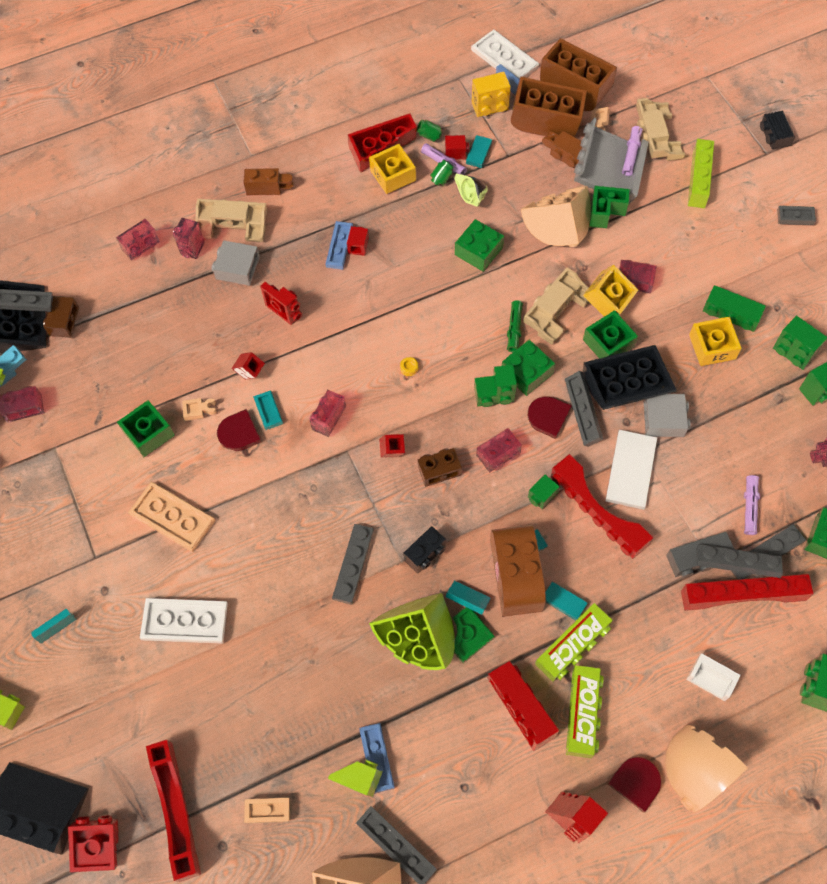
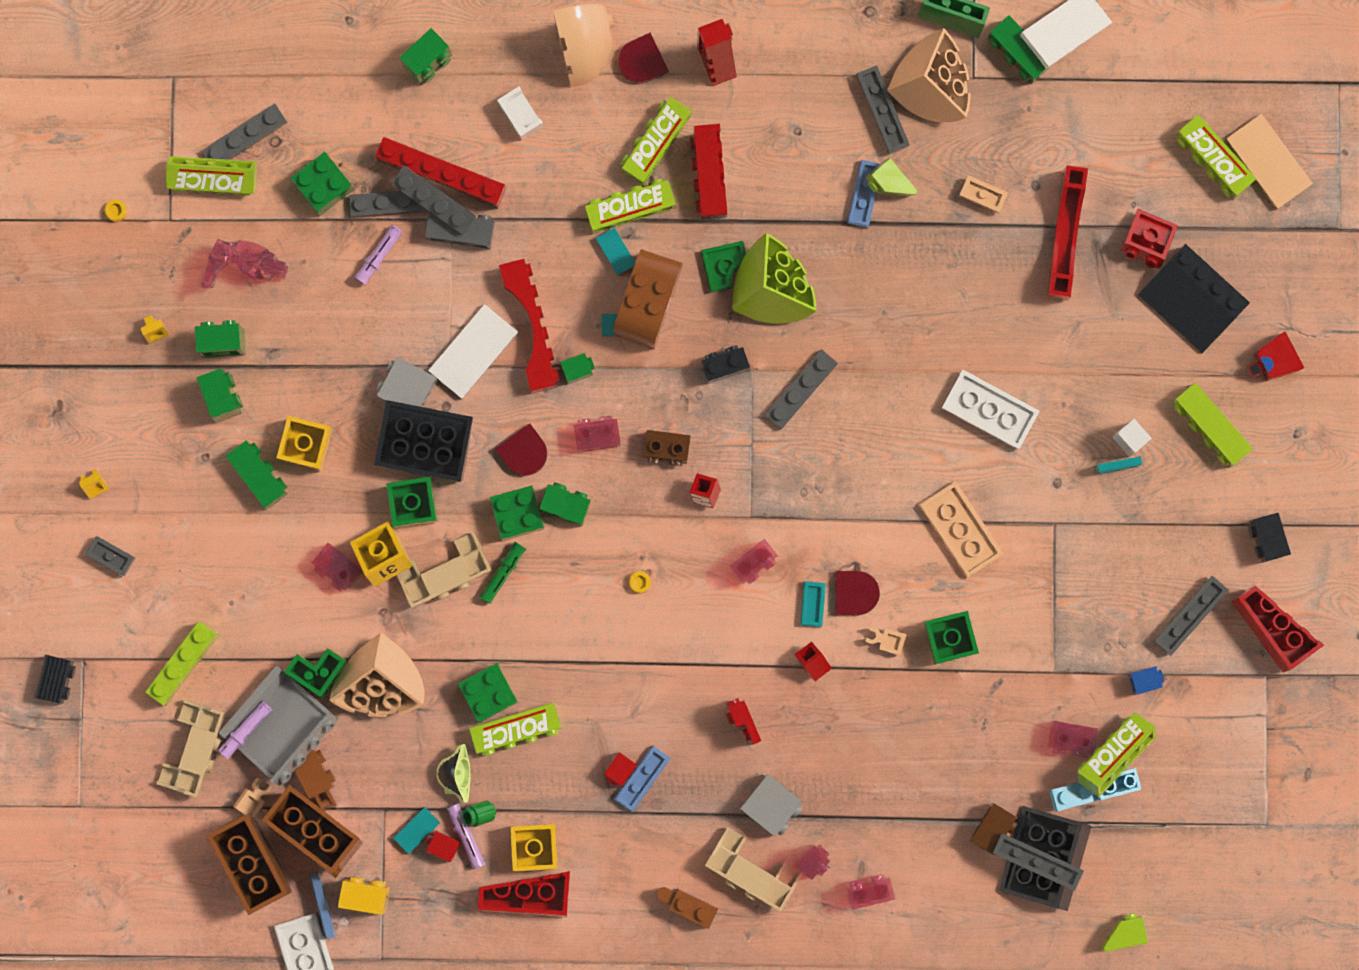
camera: 160 degrees left, 20 degrees up
(47, 650) = (1131, 437): none -> white panel
(429, 130) = (462, 885): green brick -> none
(445, 234) = (516, 728): none -> lime brick
(468, 597) = (706, 299): teal tile -> none
(583, 409) = (484, 438): dark grey plate -> none

